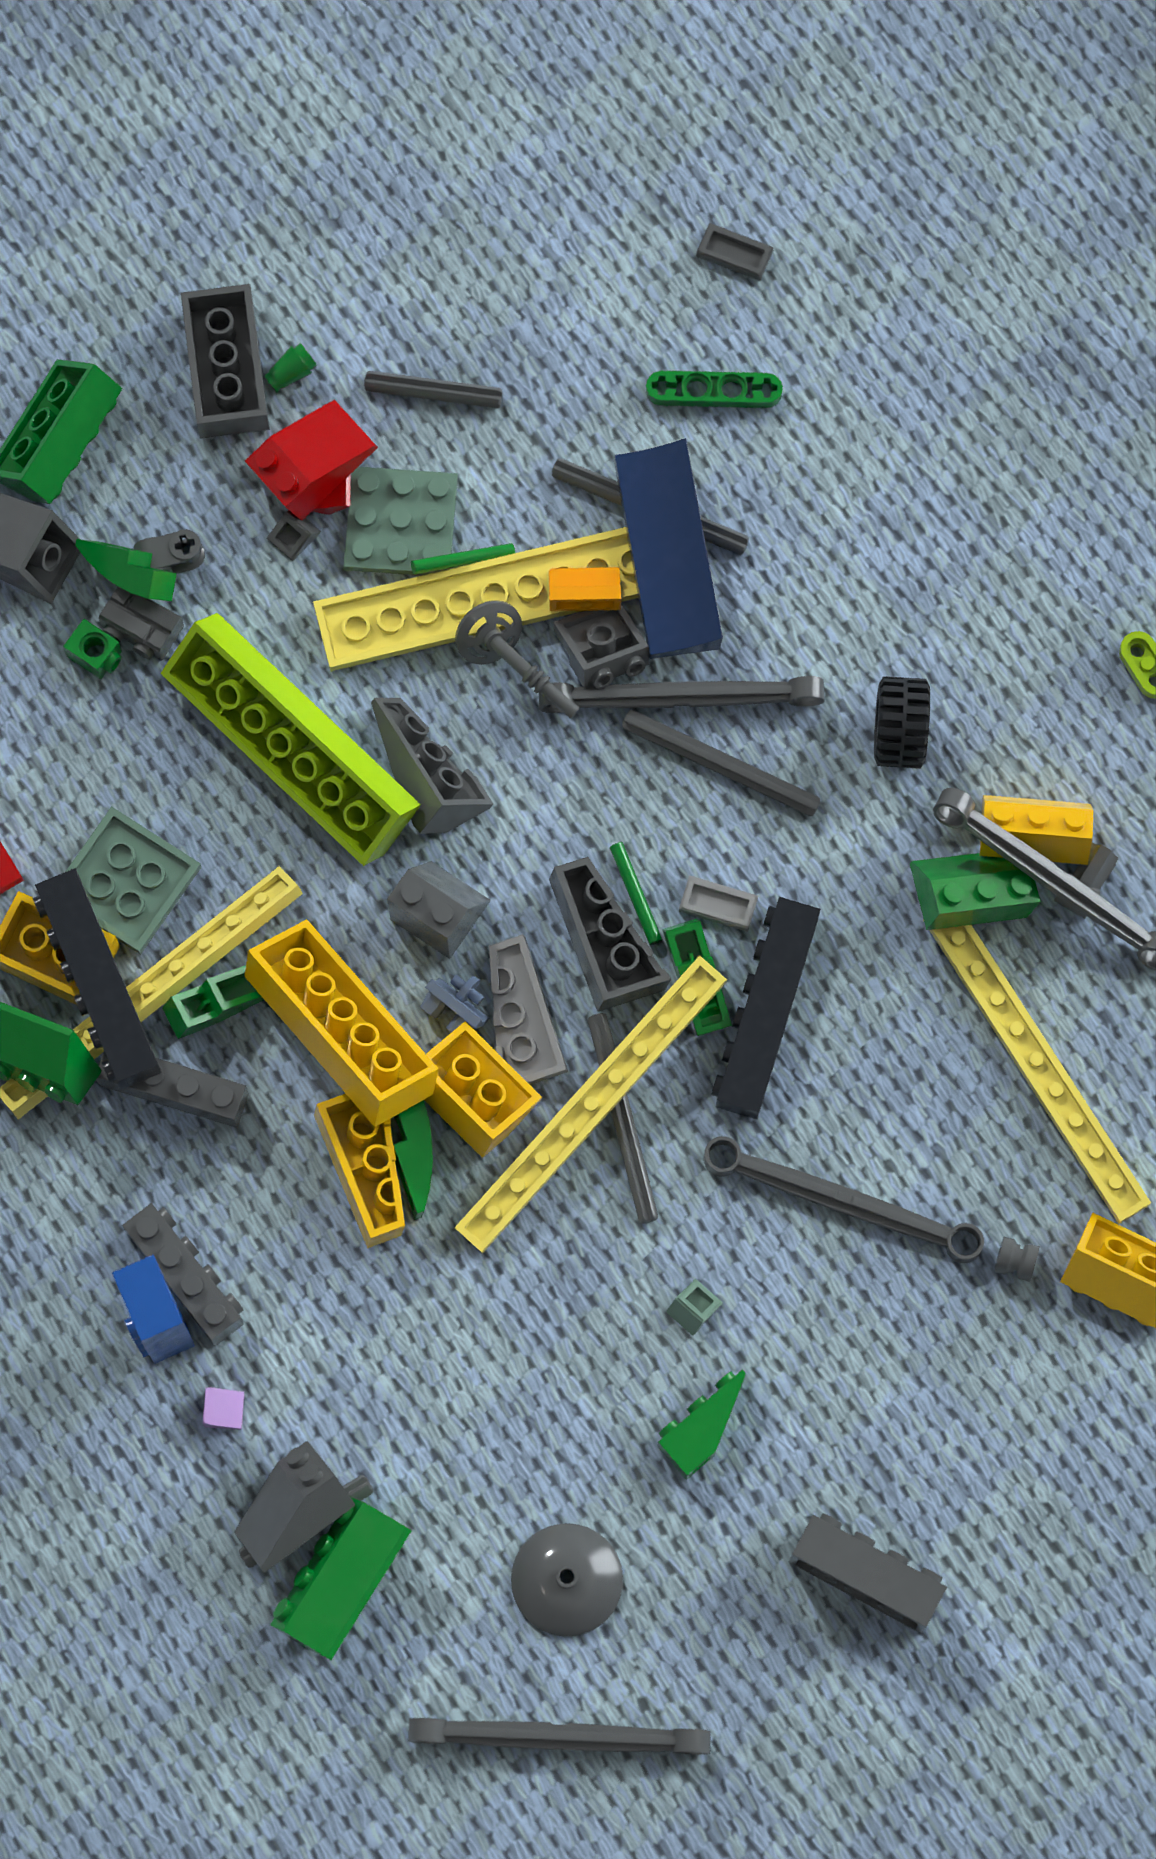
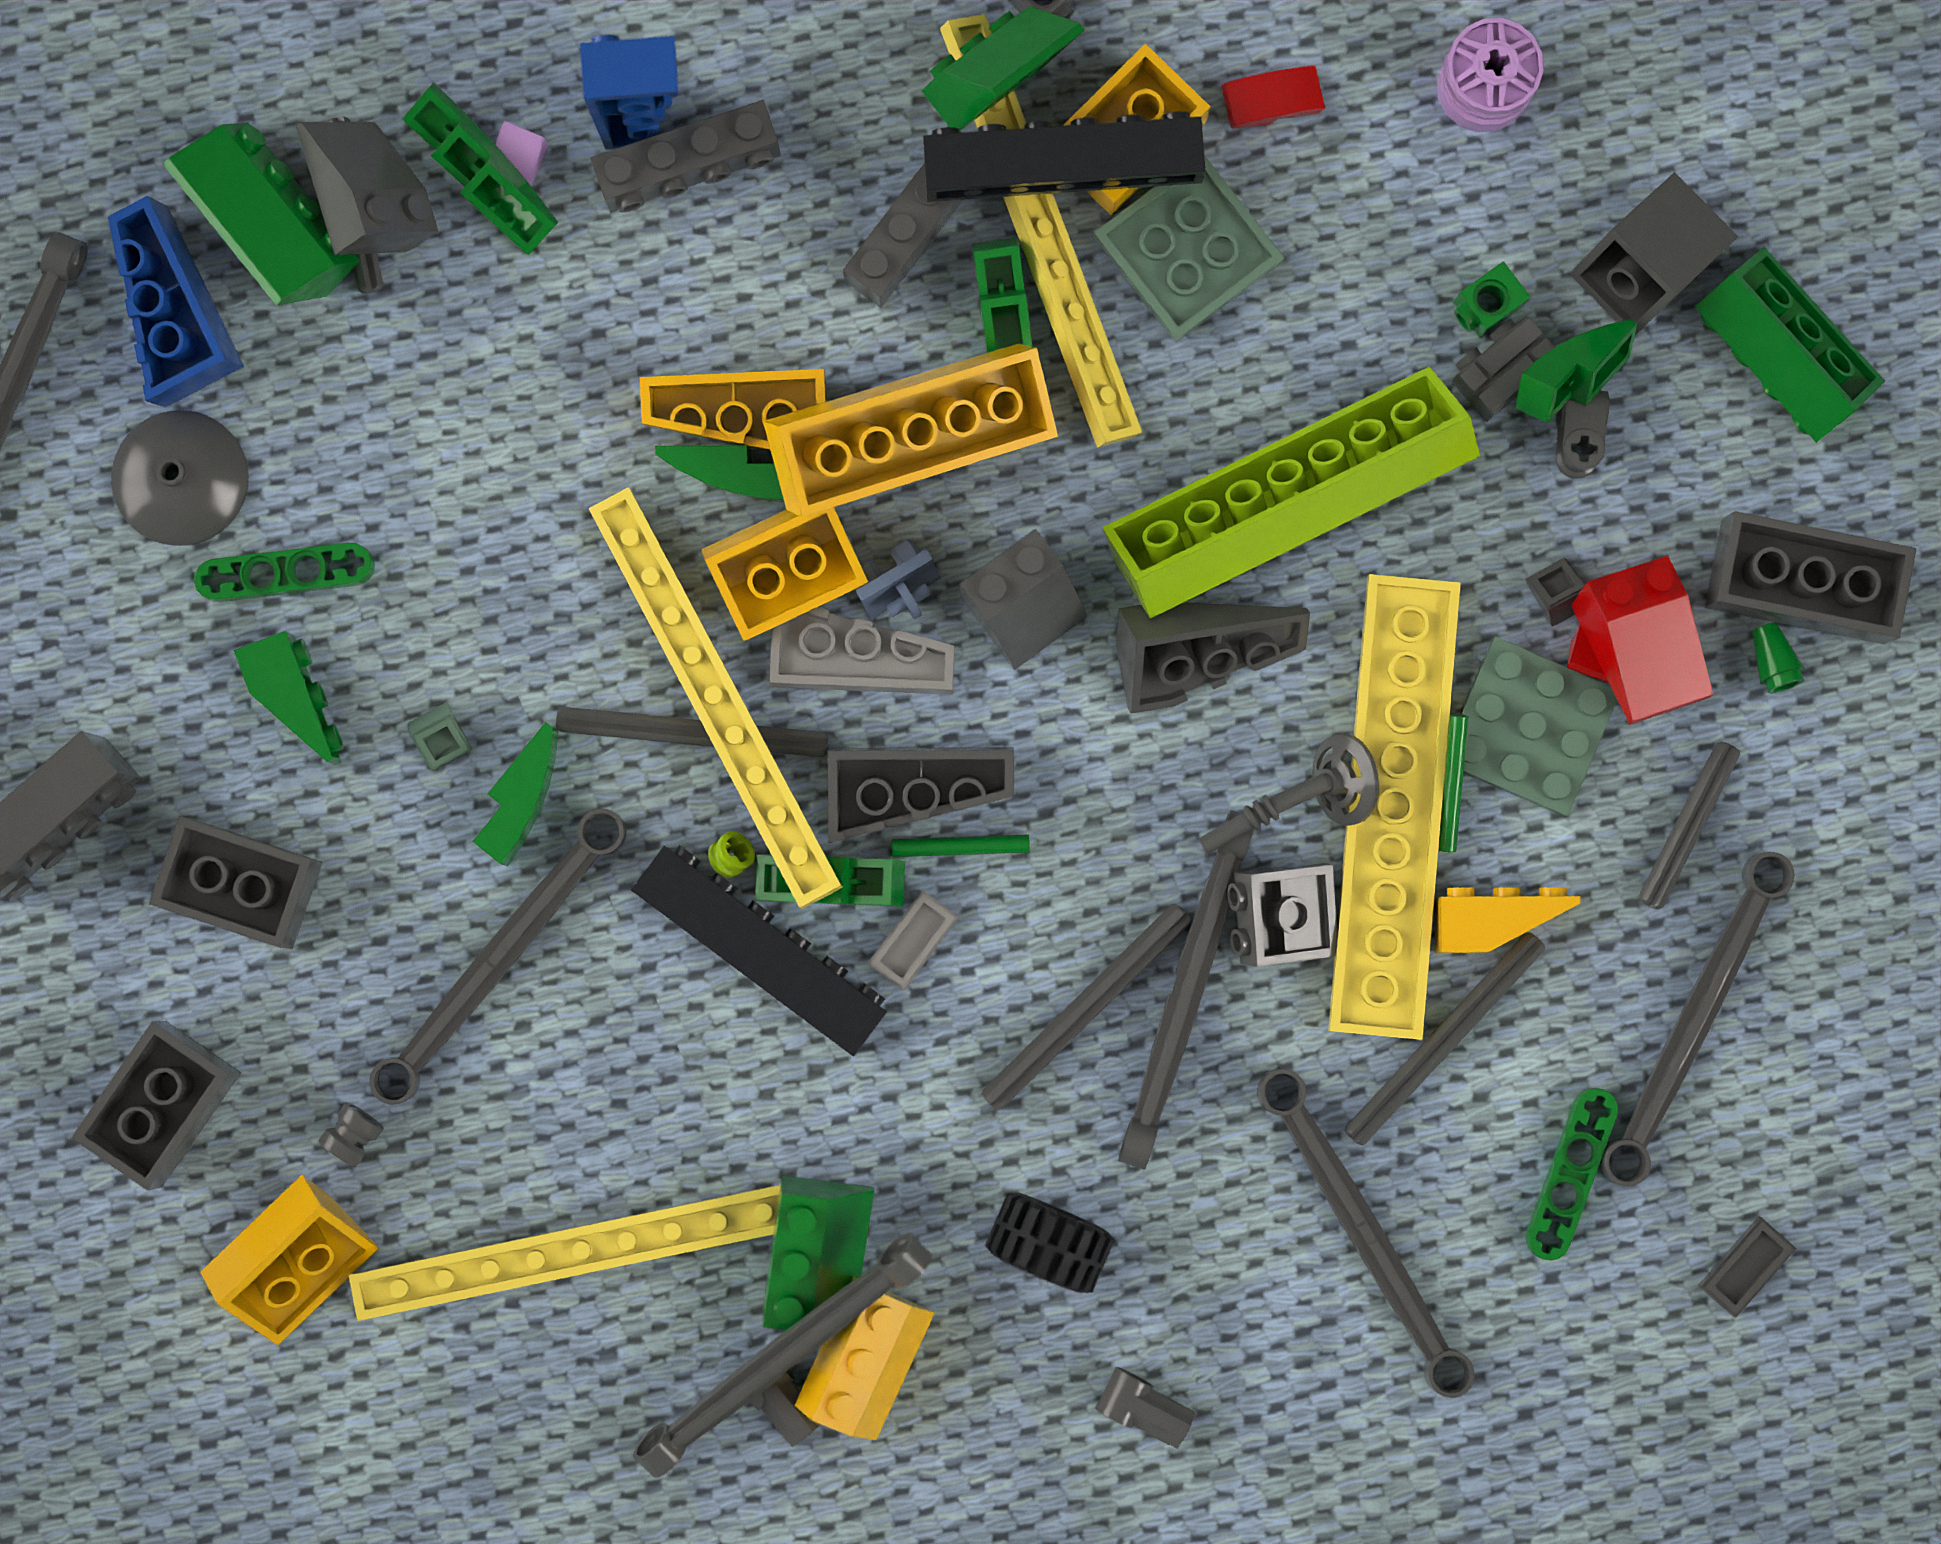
camera: 110 degrees right, 10 degrees up
(245, 1429) = (482, 168): none -> green slope
(443, 1623) = (172, 313): none -> blue wedge
(555, 500) = (1485, 922): none -> yellow slope
(570, 339) = (1696, 1017): none -> dark grey piece
(584, 589) = (1361, 916): light orange panel -> none
(616, 1466) = (284, 568): none -> green beam
(668, 550) = (1375, 1036): dark blue arch -> none
(704, 1054) = (729, 865): none -> lime bush
(717, 1223) = (521, 797): none -> green slope
(810, 514) = (1366, 1234): none -> dark grey piece
(862, 1410) = (235, 883): none -> dark grey brick
(993, 632) = (1134, 1403): none -> dark grey piece
(1050, 1408) = (156, 1105): none -> dark grey brick

